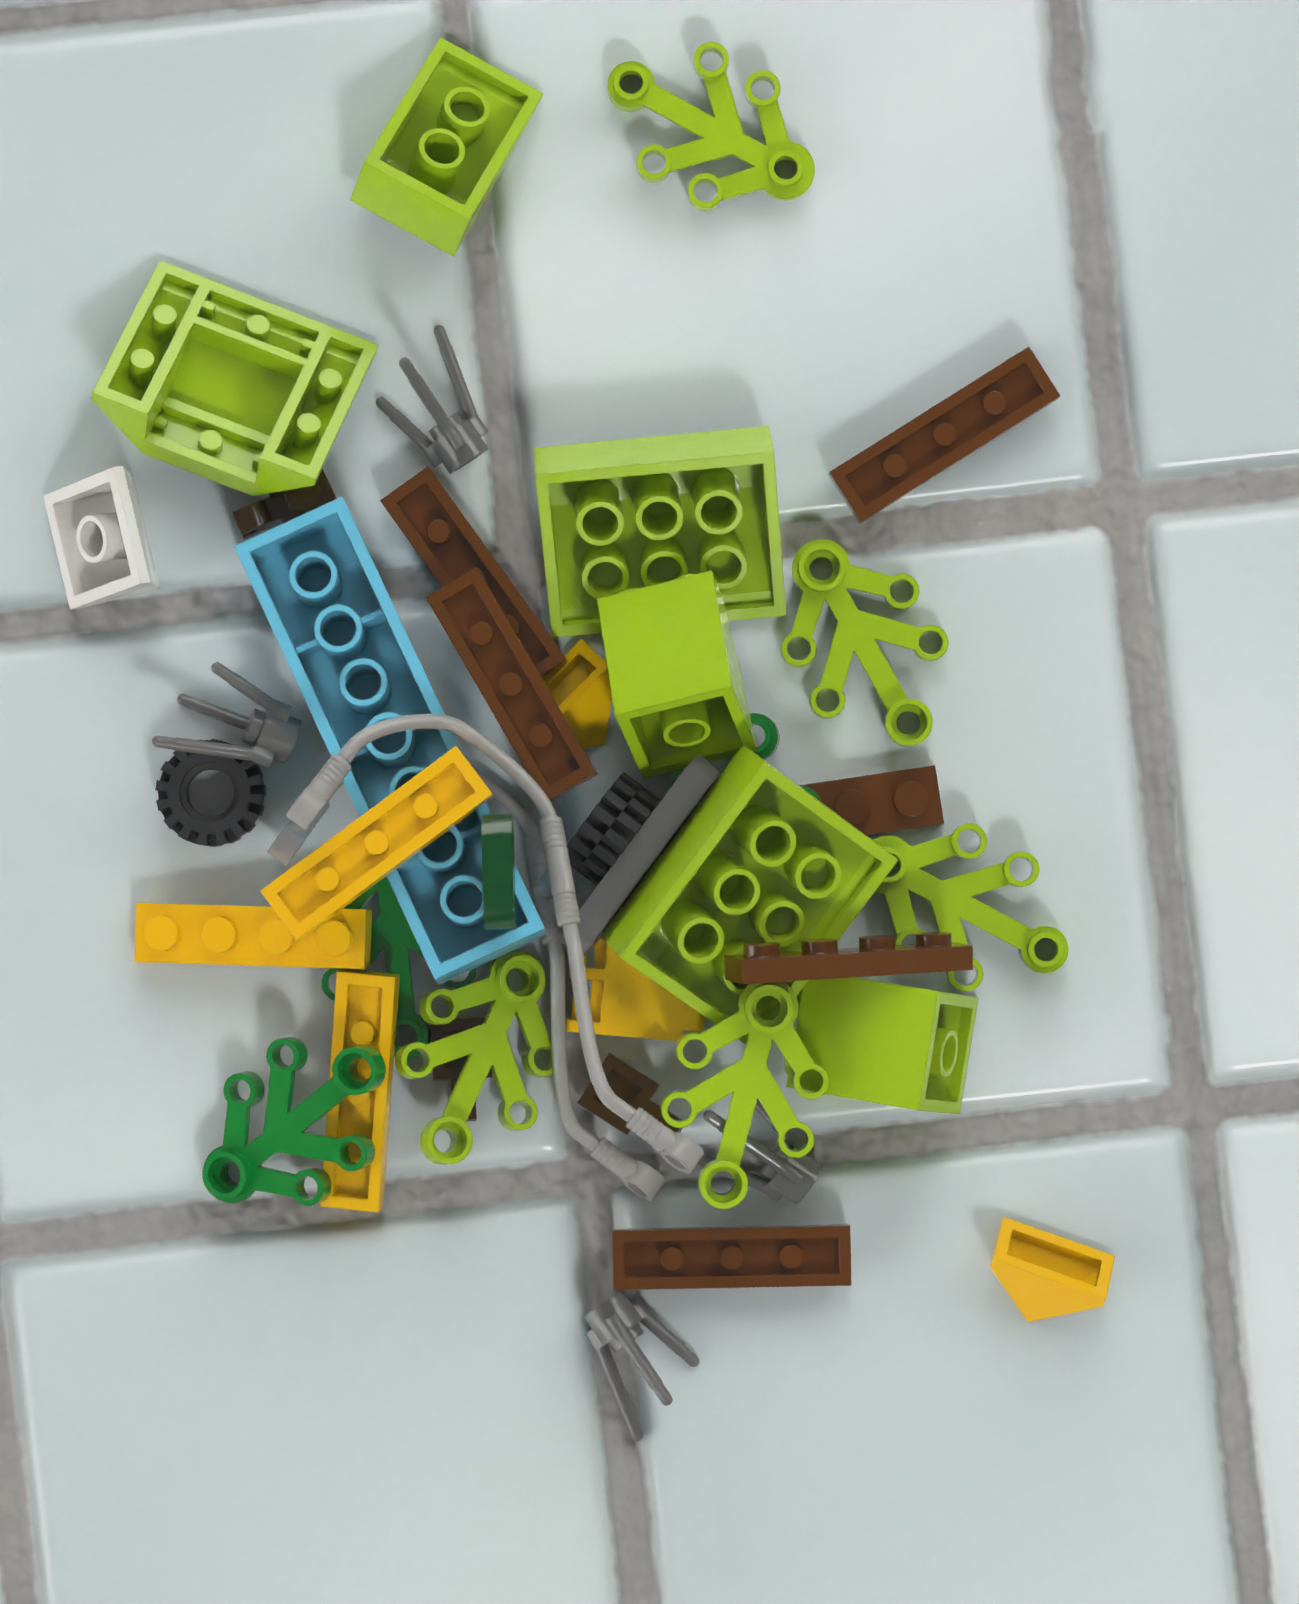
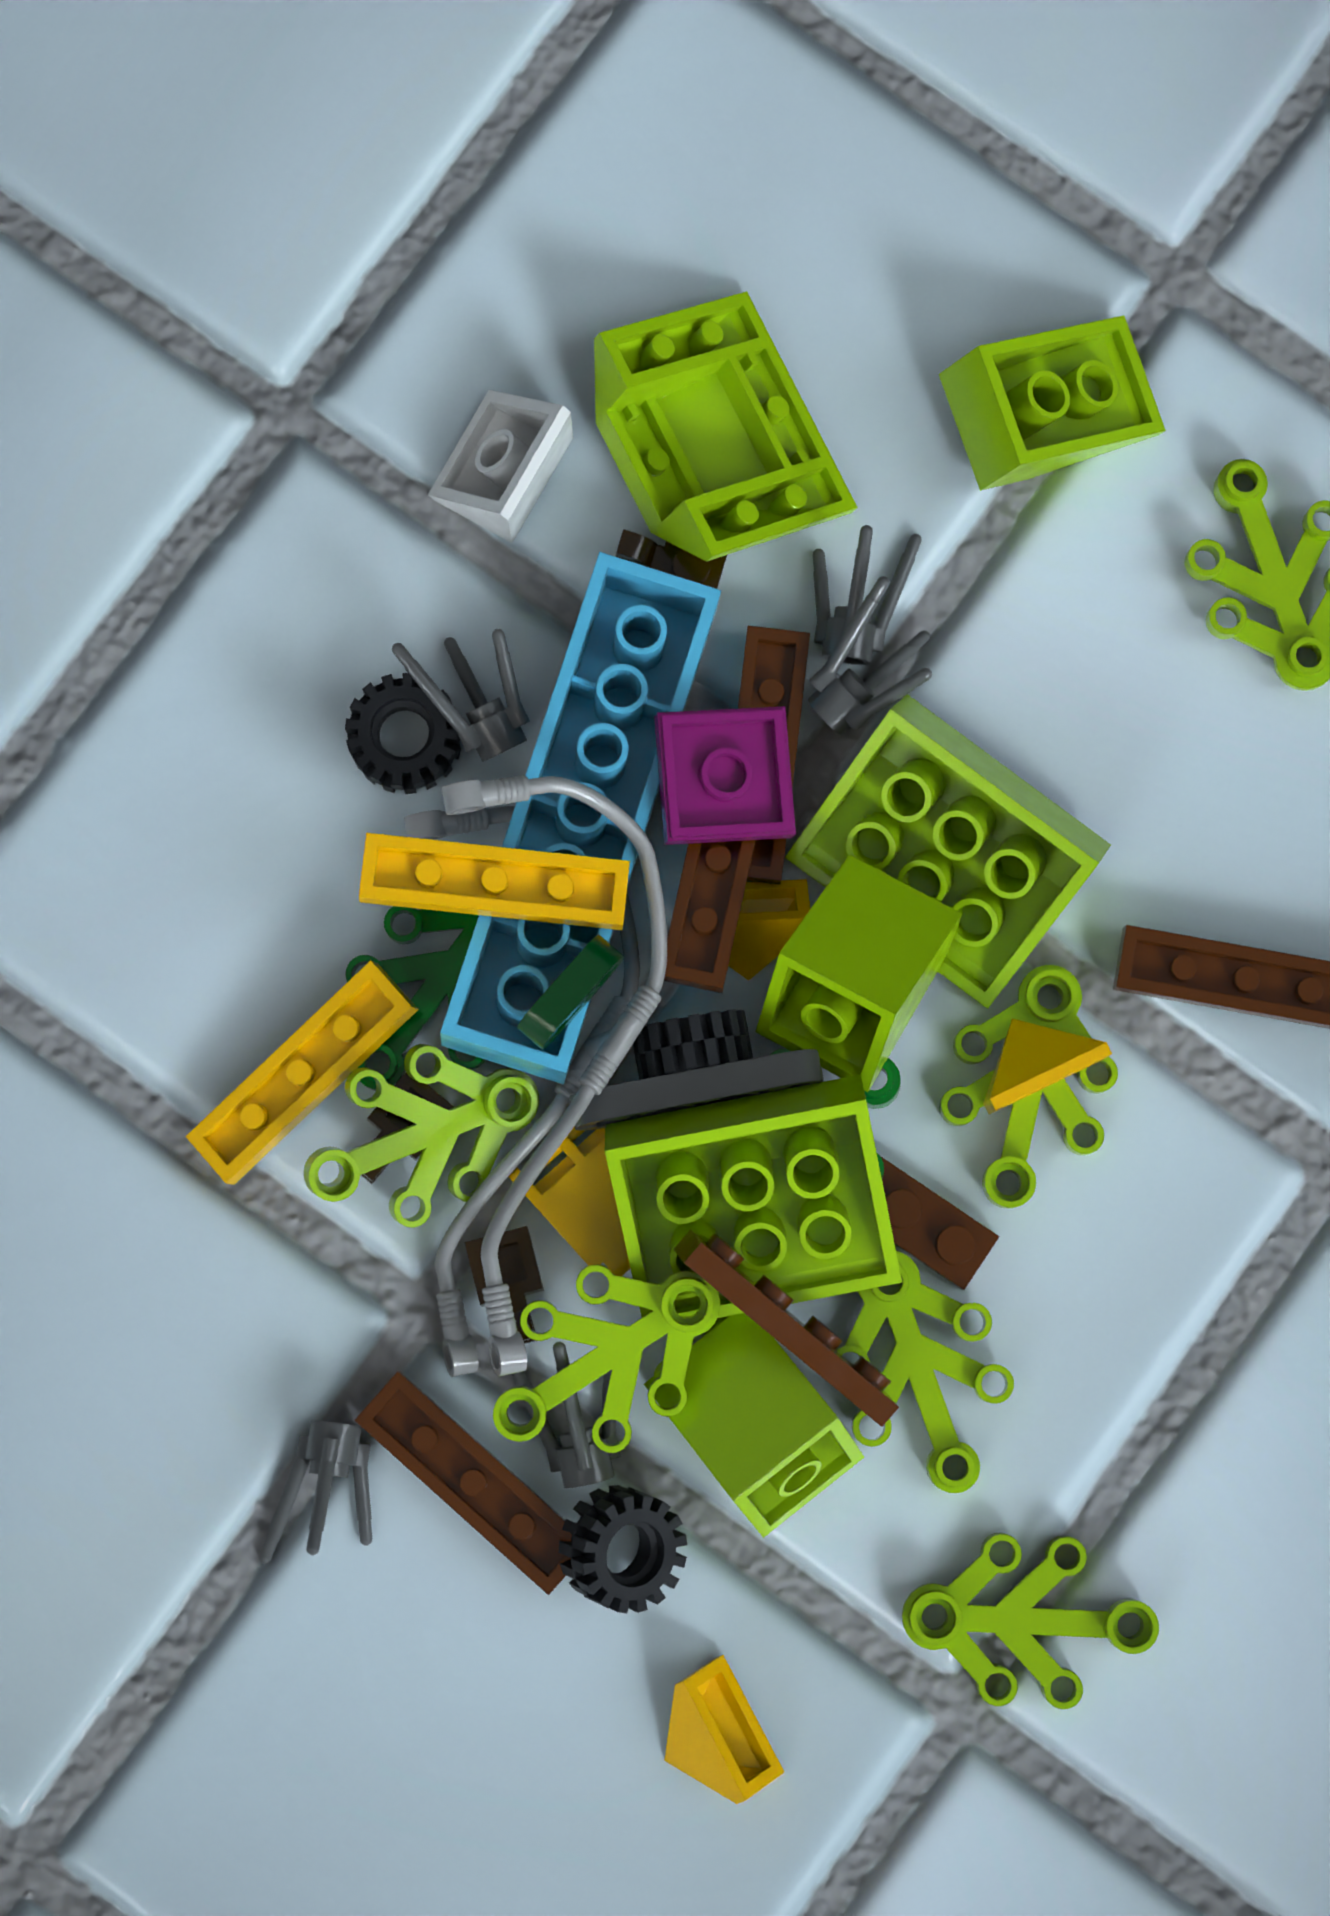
camera: 45 degrees right, 5 degrees down
(248, 937) = (329, 873): yellow plate -> none
(286, 1127) = (217, 1048): green plant -> none
(464, 624) = (724, 775): none -> magenta plate
(493, 491) = (847, 698): none -> dark grey plant
(852, 621) = (1036, 1059): none -> yellow slope
(901, 1204) = (653, 1559): none -> black tyre
(1178, 1012) = (1016, 1620): none -> lime plant

